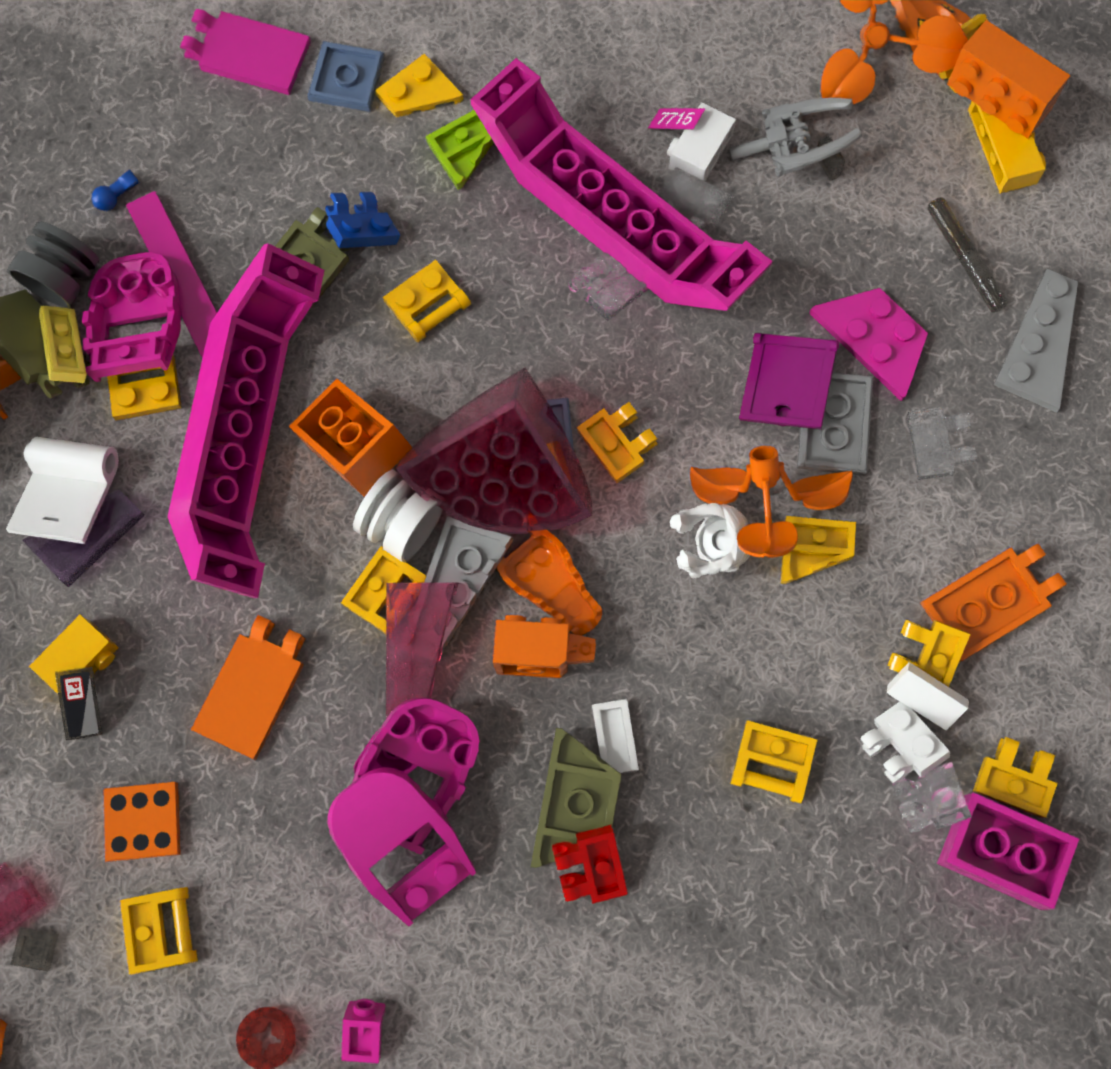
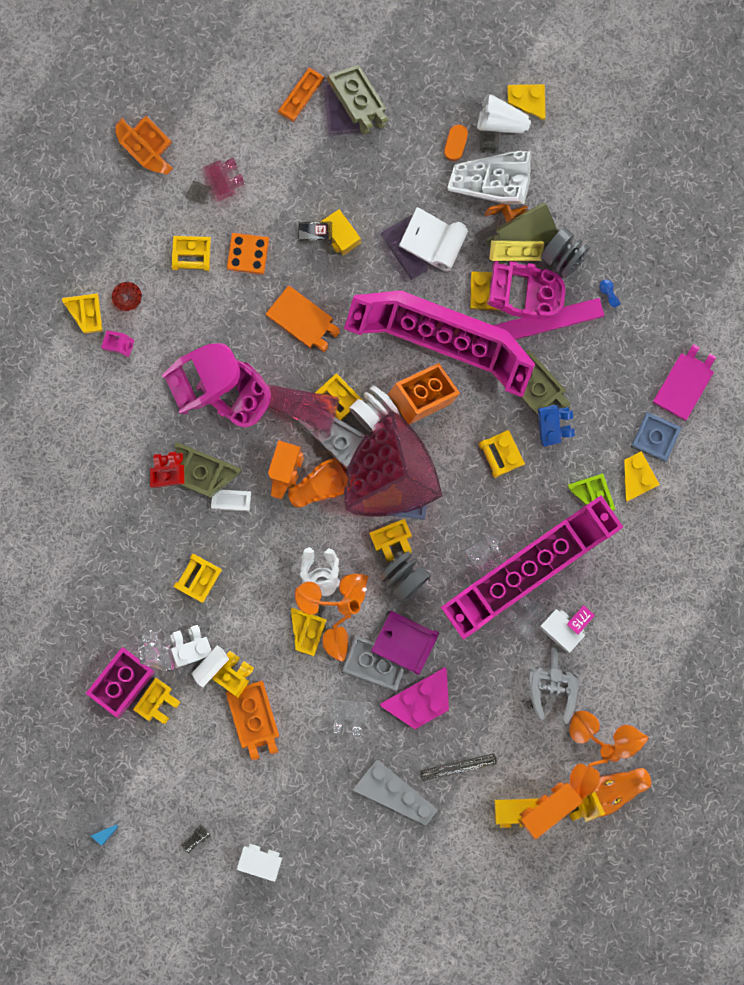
camera: 100 degrees right, 5 degrees up
(681, 398) = (404, 576): none -> dark grey wheel

